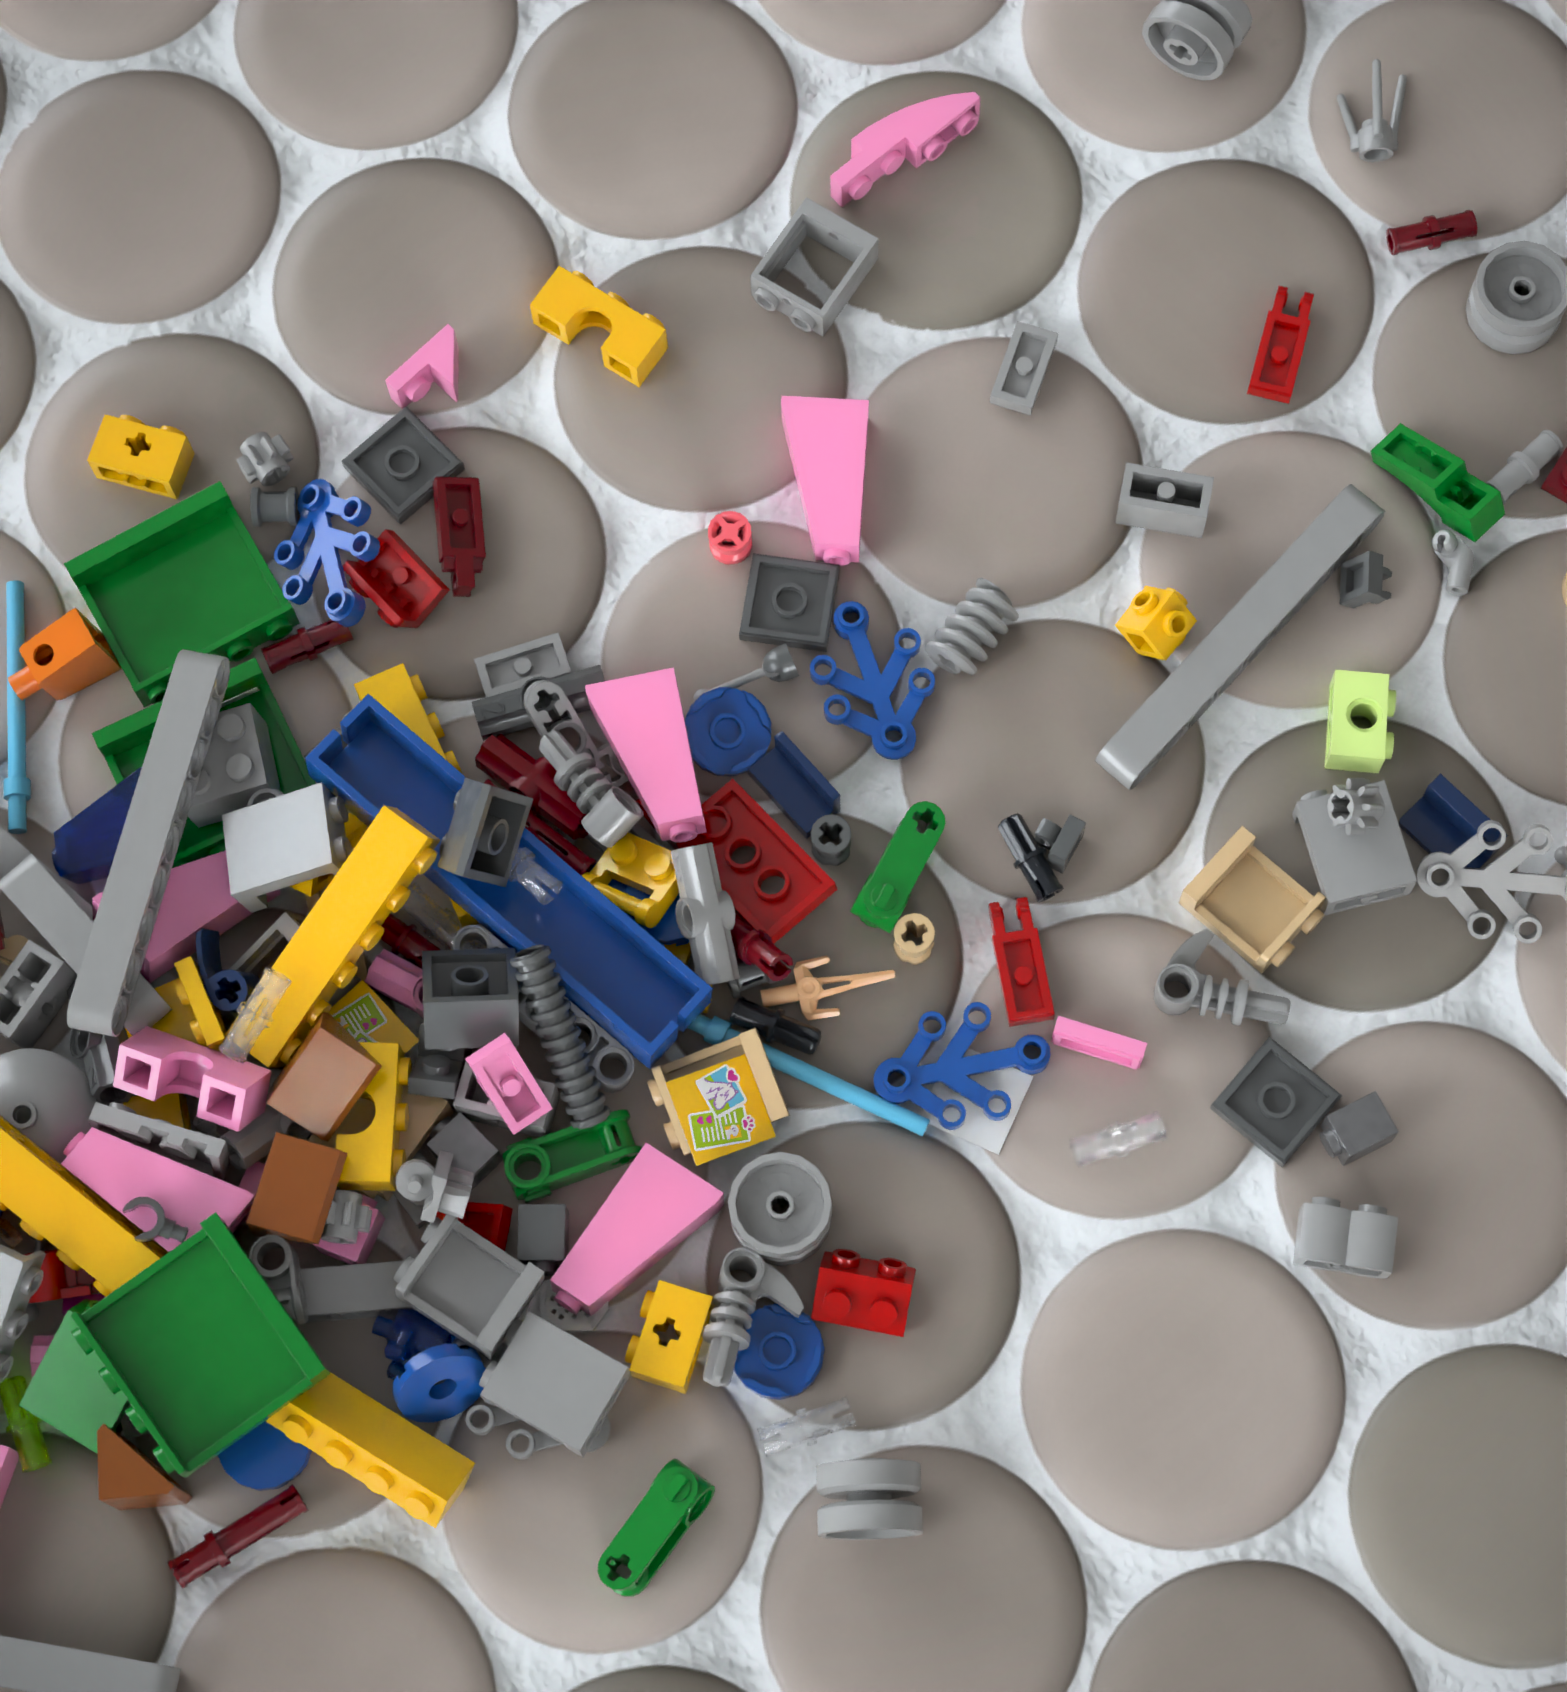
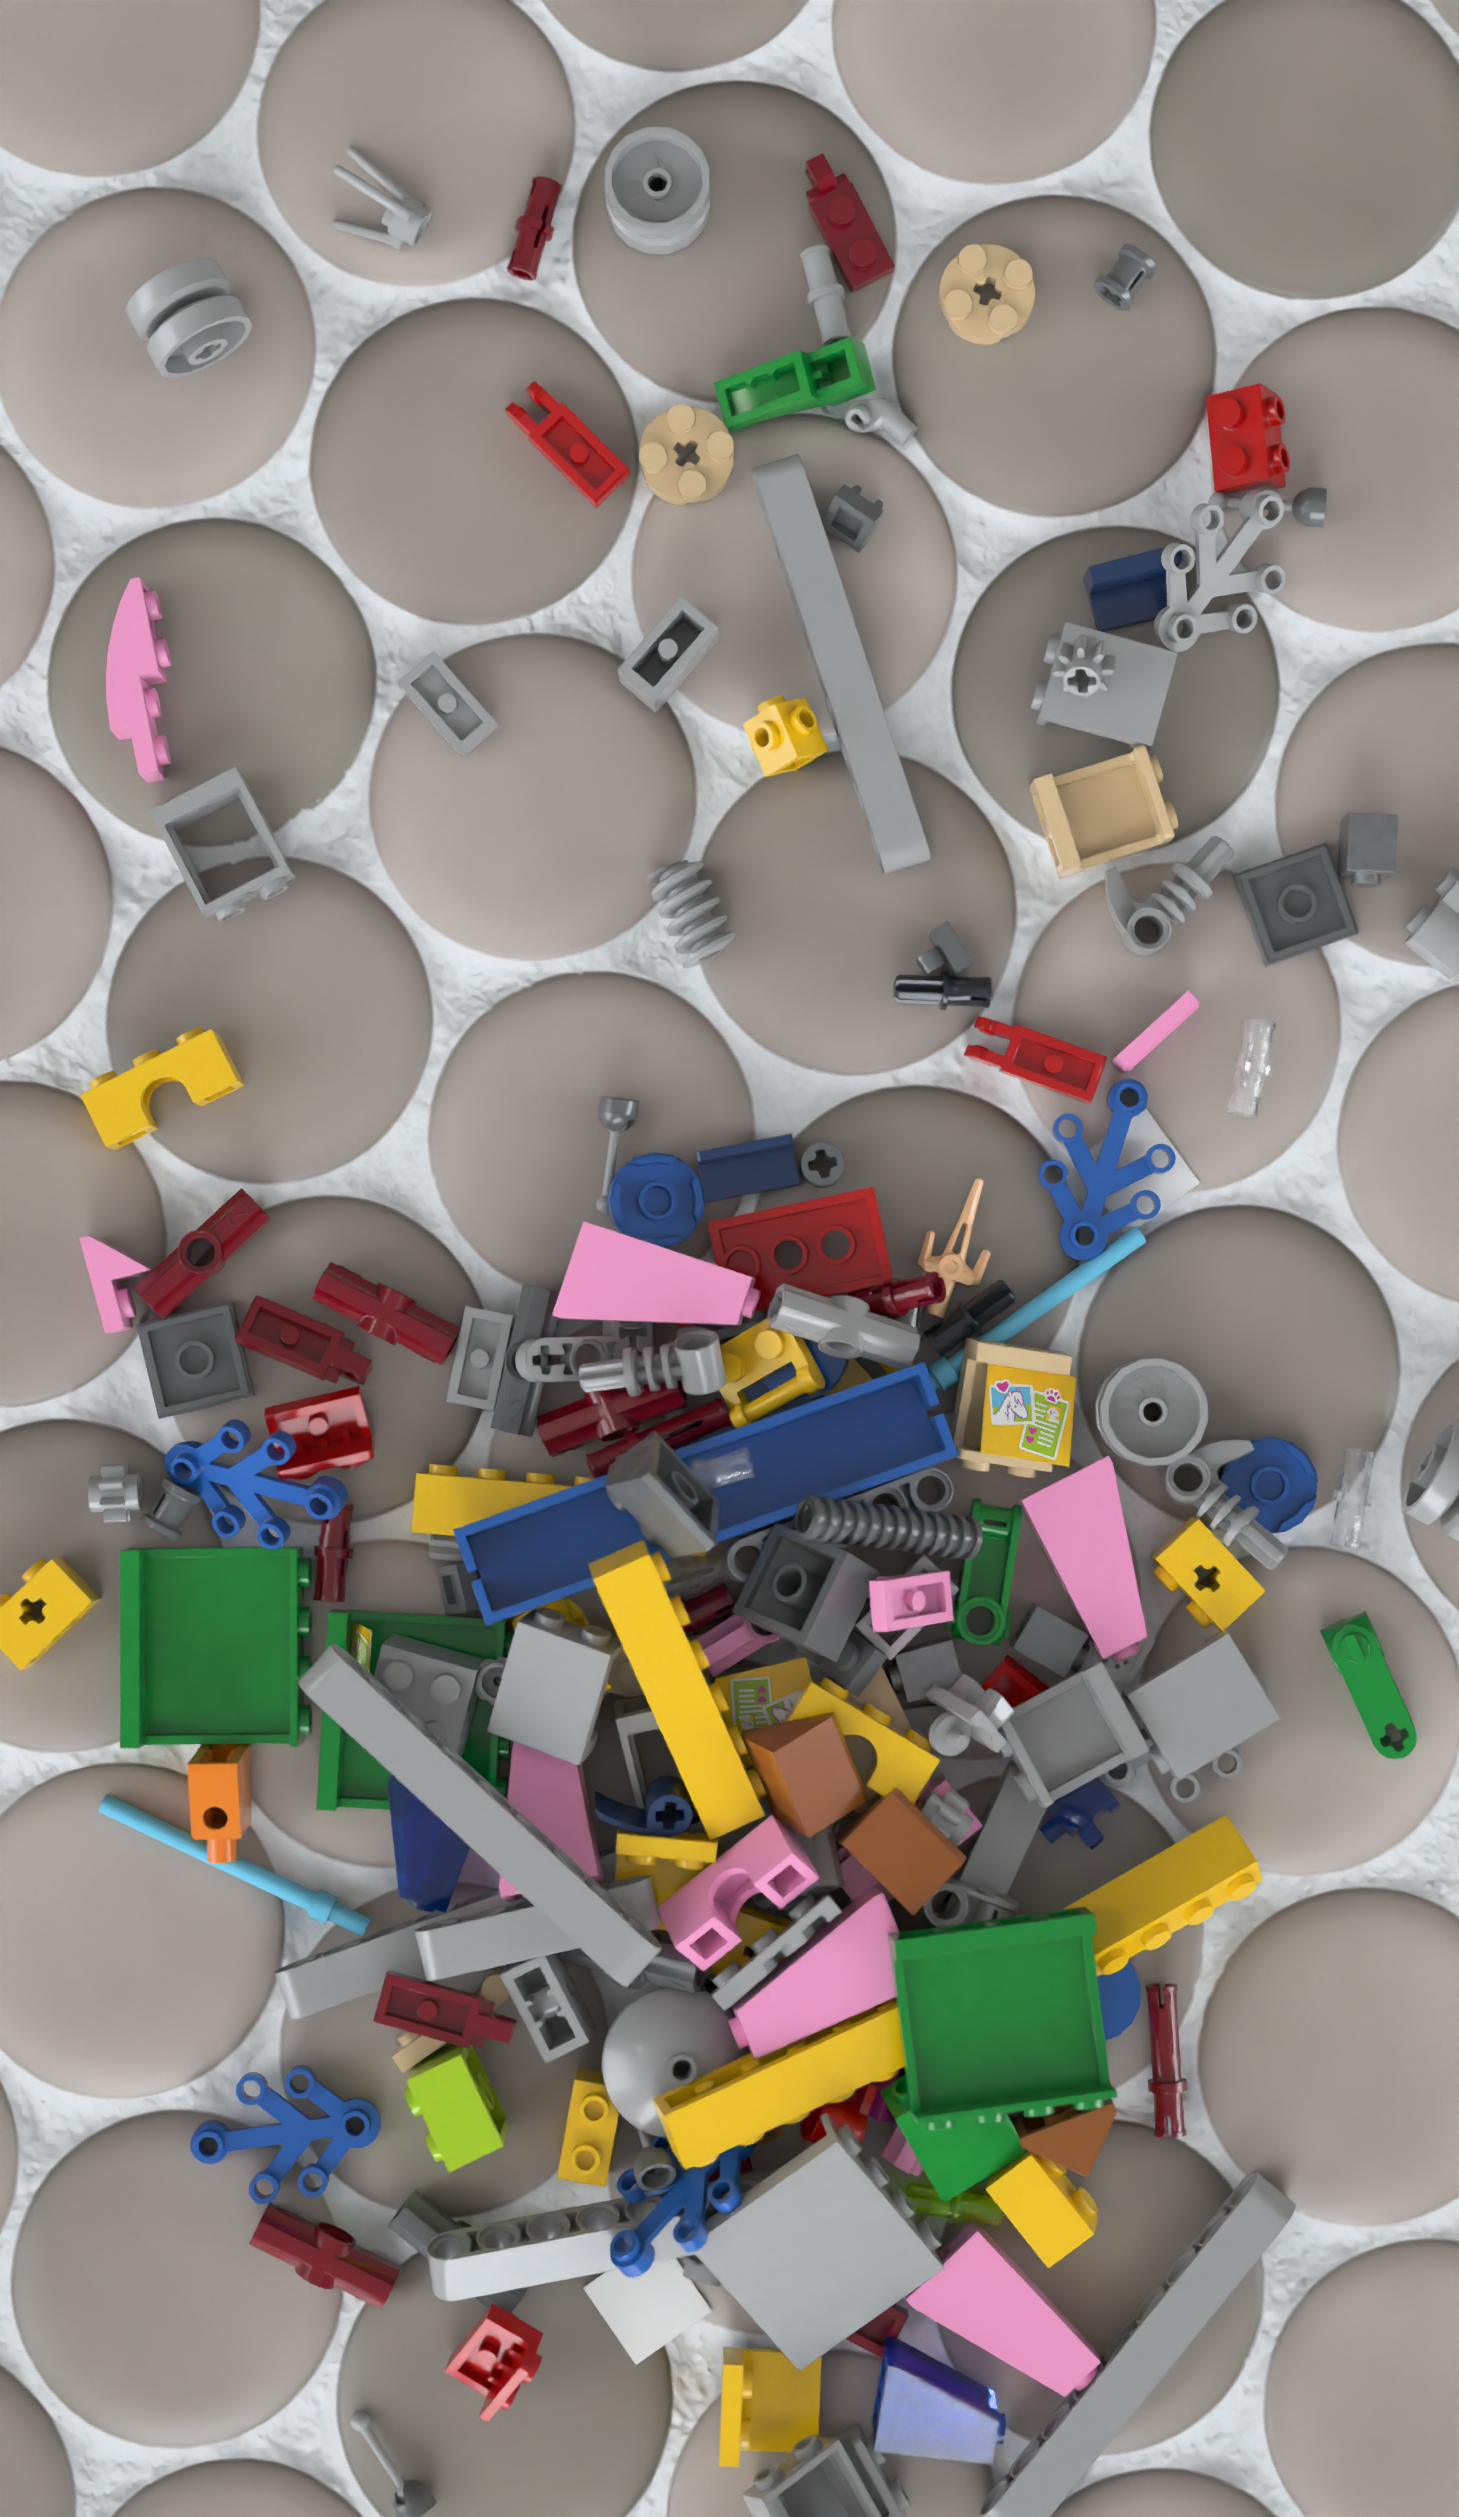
camera: 65 degrees left, 15 degrees up
(58, 1495) = (1044, 2206): none -> yellow brick
(164, 1227) = (869, 1992): dark grey piece -> none
(239, 1040) = (715, 1804): clear pin -> none
(429, 1403) = (1137, 1808): blue tile -> none
(463, 412) = (179, 1277): none -> dark red piece
(518, 578) = (386, 1313): none -> dark red piece
(727, 527) = (459, 1078): coral wheel -> none
(789, 602) = (556, 1067): dark grey tile -> none
(829, 466) = (441, 949): bright pink slope -> none
(863, 1292) = (1261, 1377): red bracket -> none
(874, 687) = (691, 1036): blue plant -> none
(899, 867) = (887, 1118): green piece -> none
(920, 927) = (972, 1133): tan bush -> none
(1347, 417) = (686, 427): none -> tan plate
(1348, 745) = (998, 634): yellowish green brick -> none

